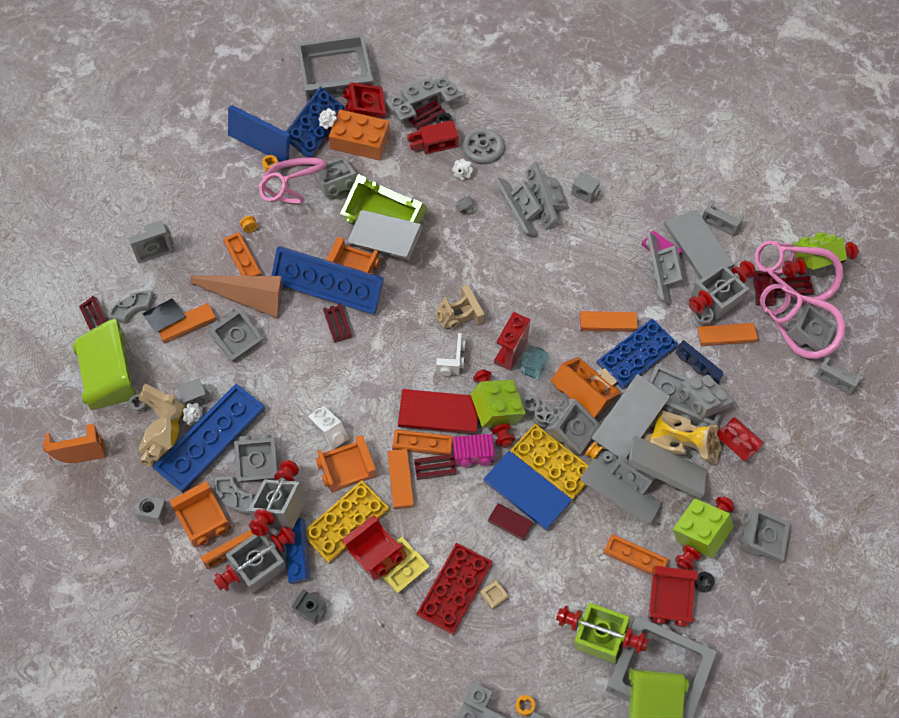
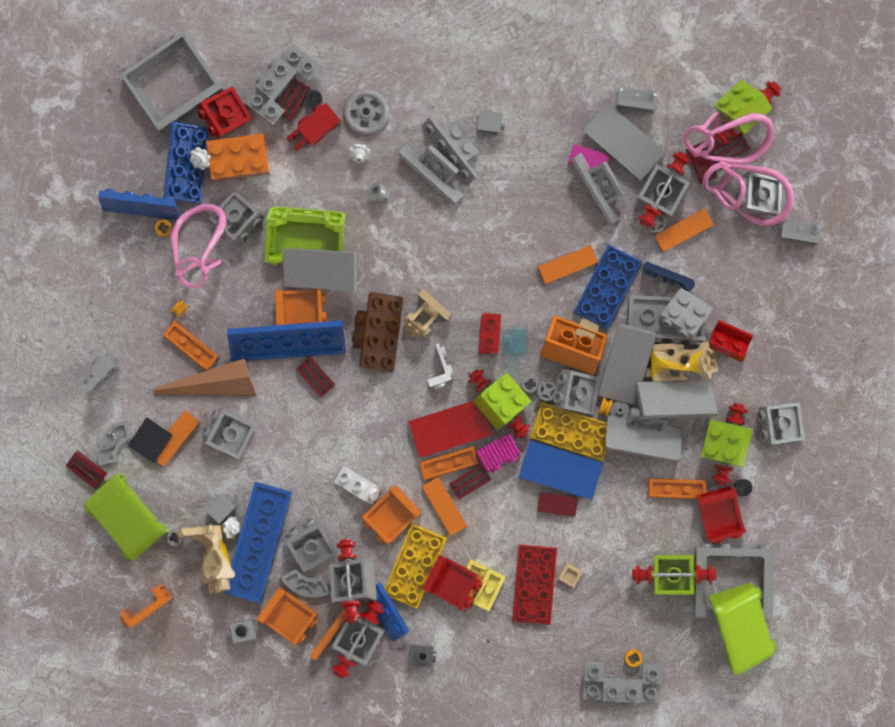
camera: 20 degrees left, 25 degrees up
(412, 306) = (378, 331): none -> reddish brown bracket

